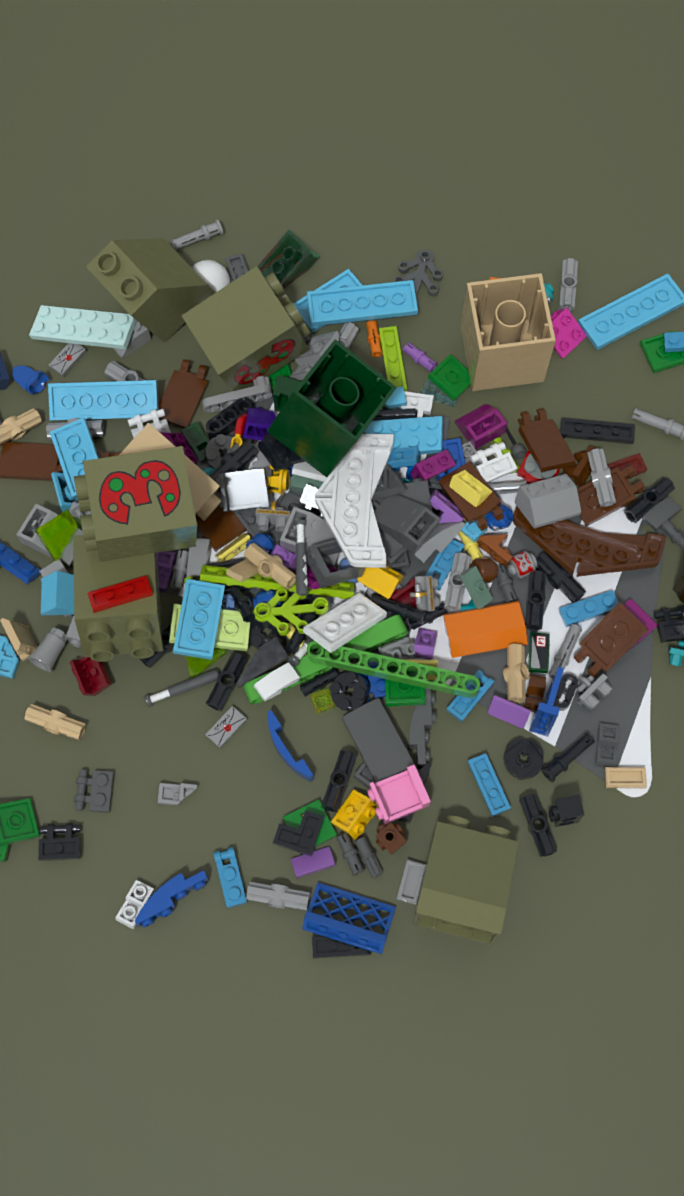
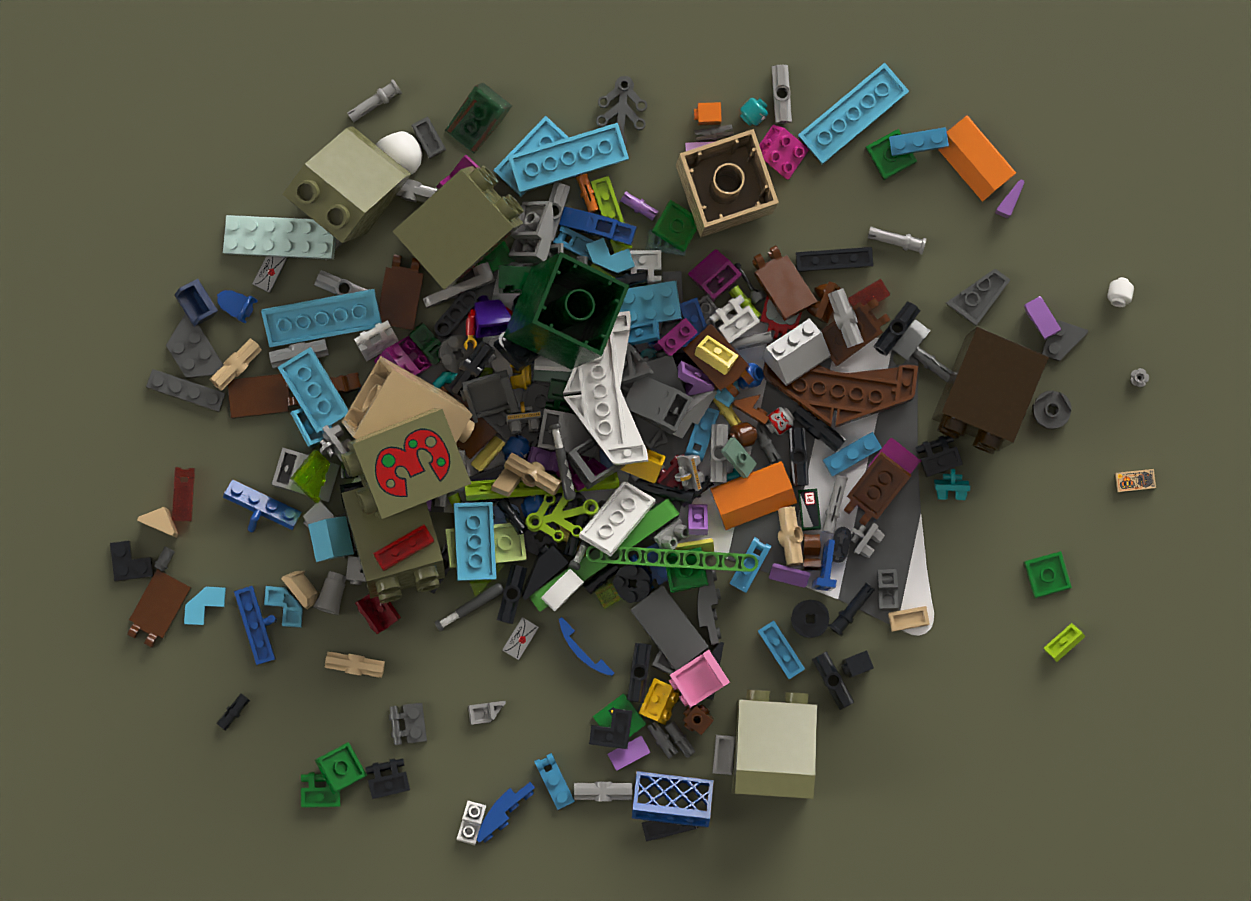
camera: 20 degrees left, 15 degrees up
(384, 364) = (598, 225): none -> blue slope

